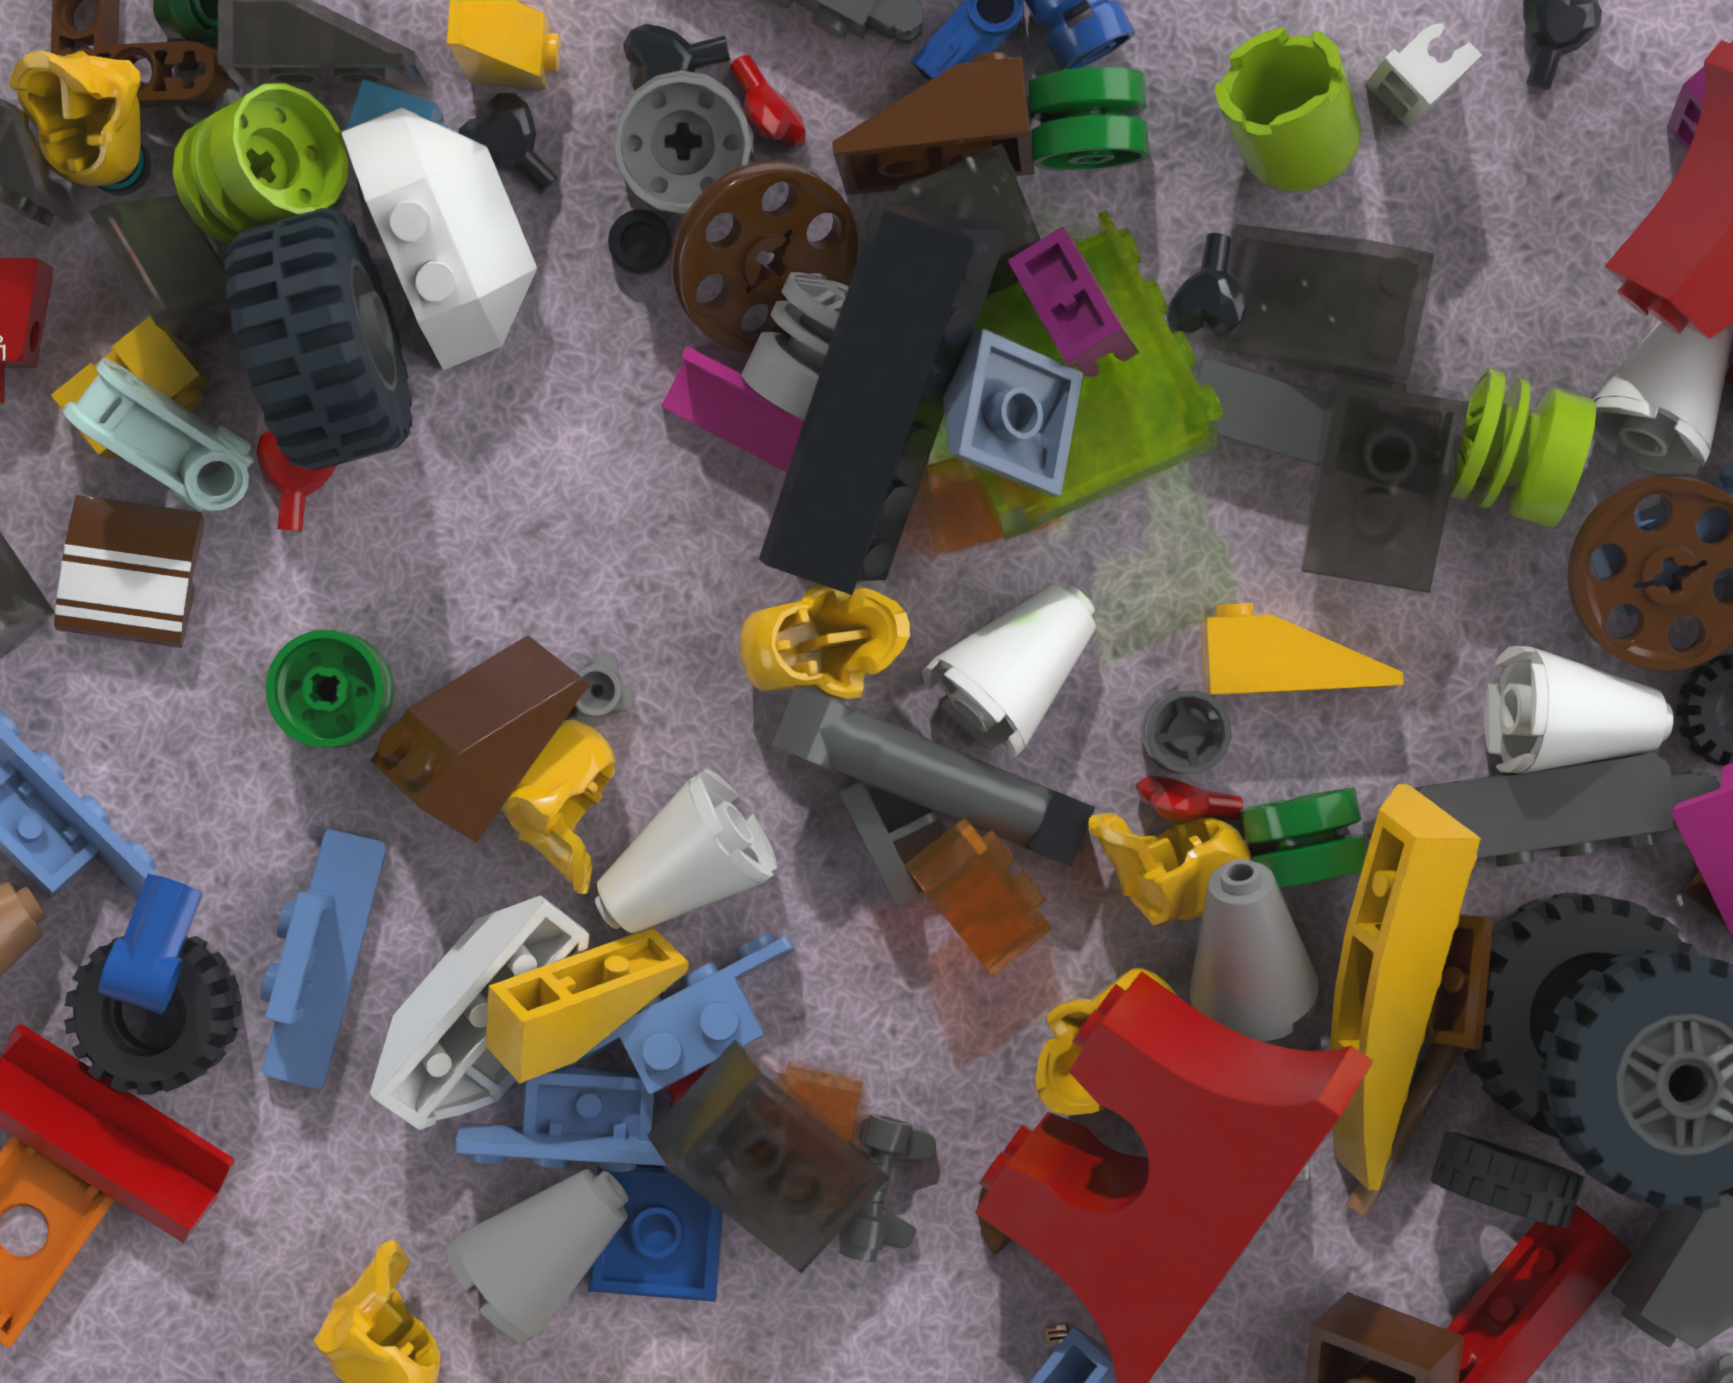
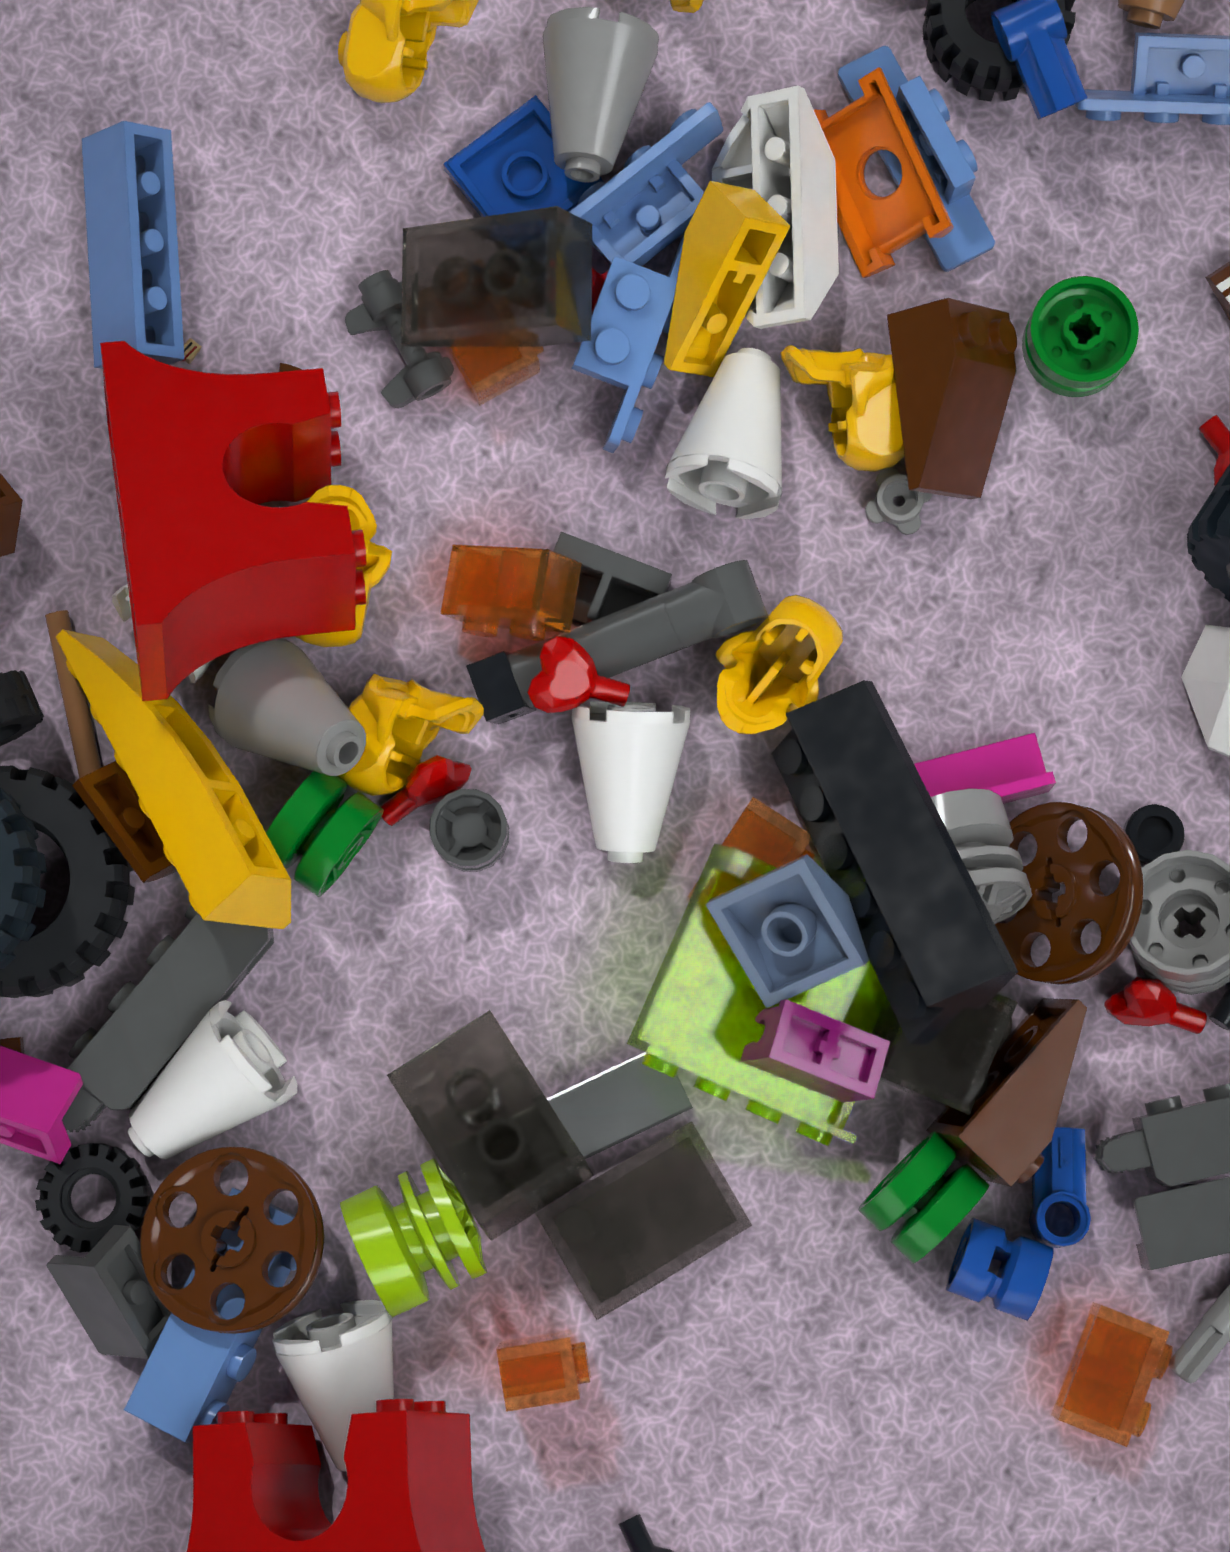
camera: 140 degrees right, 5 degrees down
(410, 940) = (869, 222): none -> orange piece
(1000, 776) = (571, 679): none -> red rock
(1209, 296) = (726, 1155): black rock -> none
(1272, 655) = (452, 941): yellow slope -> none
(1290, 110) = (789, 1329): lime cylinder -> none
(1415, 81) = (717, 1432): white hinge -> none
(1510, 254) = (542, 1369): none -> clear orange brick

